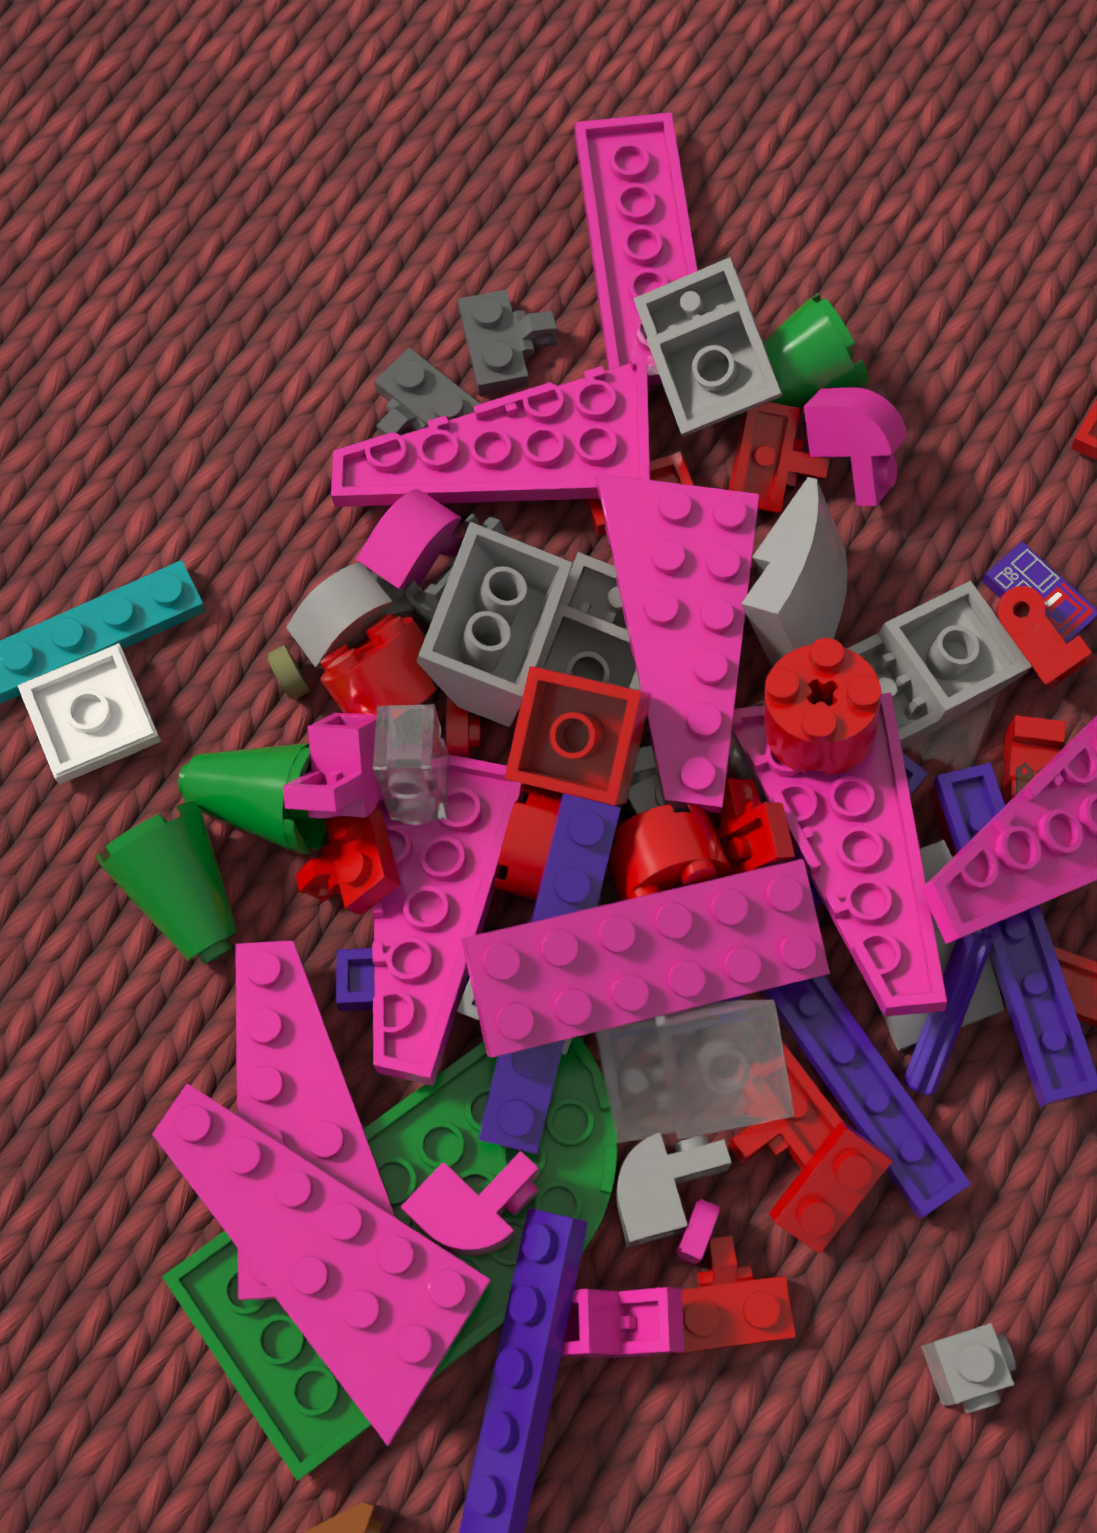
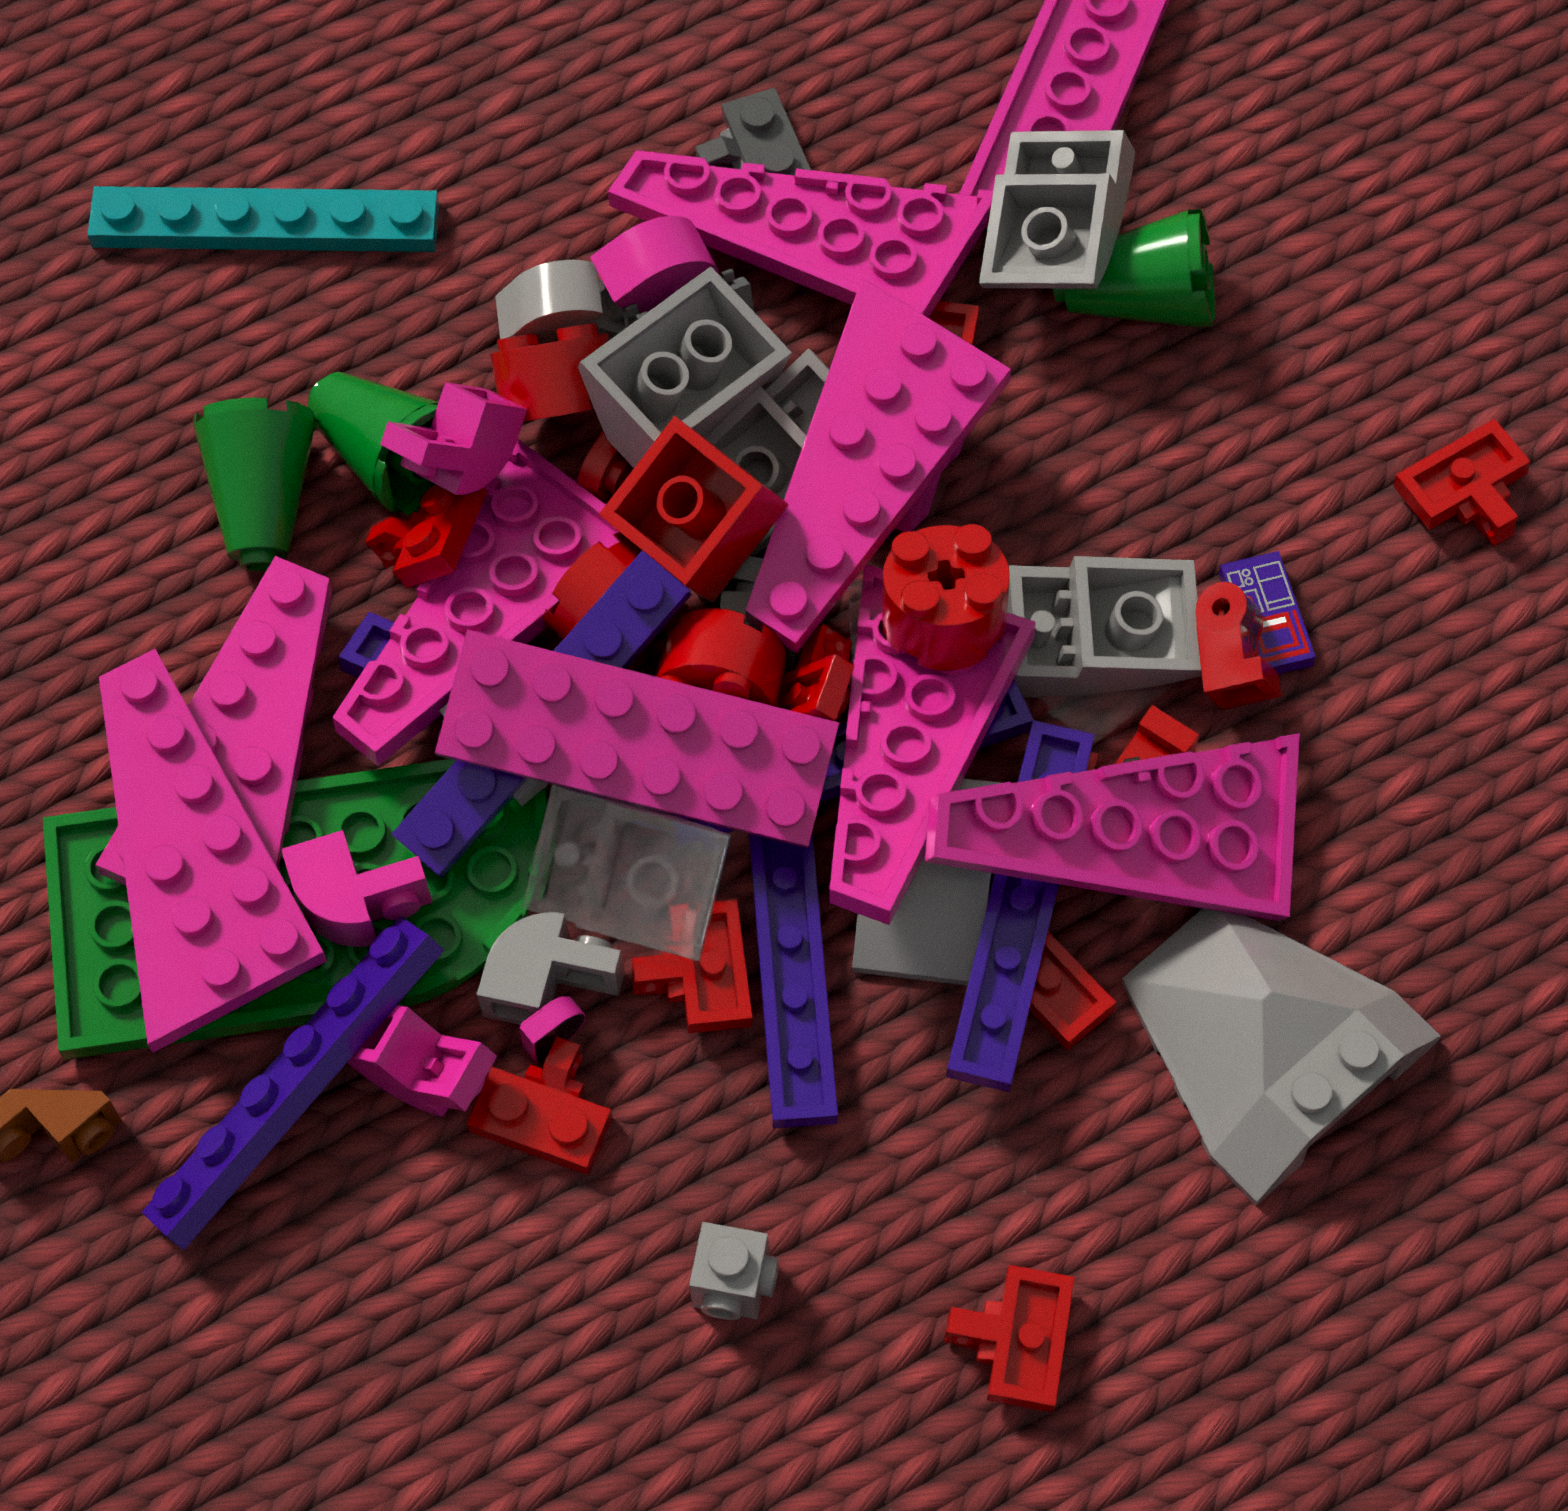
camera: 30 degrees right, 5 degrees down
(89, 714) = (268, 292): white plate -> none
(288, 672) = (474, 340): olive tile -> none
(411, 763) = (526, 465): clear brick -> none
(502, 339) = (873, 120): dark grey hinge -> none
(771, 456) = (1067, 351): red hinge -> none
(800, 577) = (1018, 469): light grey slope -> none
(830, 1187) = (698, 1048): red plate -> none
(858, 426) = (1167, 361): dark pink brick -> none
(943, 1027) = (912, 947): dark purple axle -> none

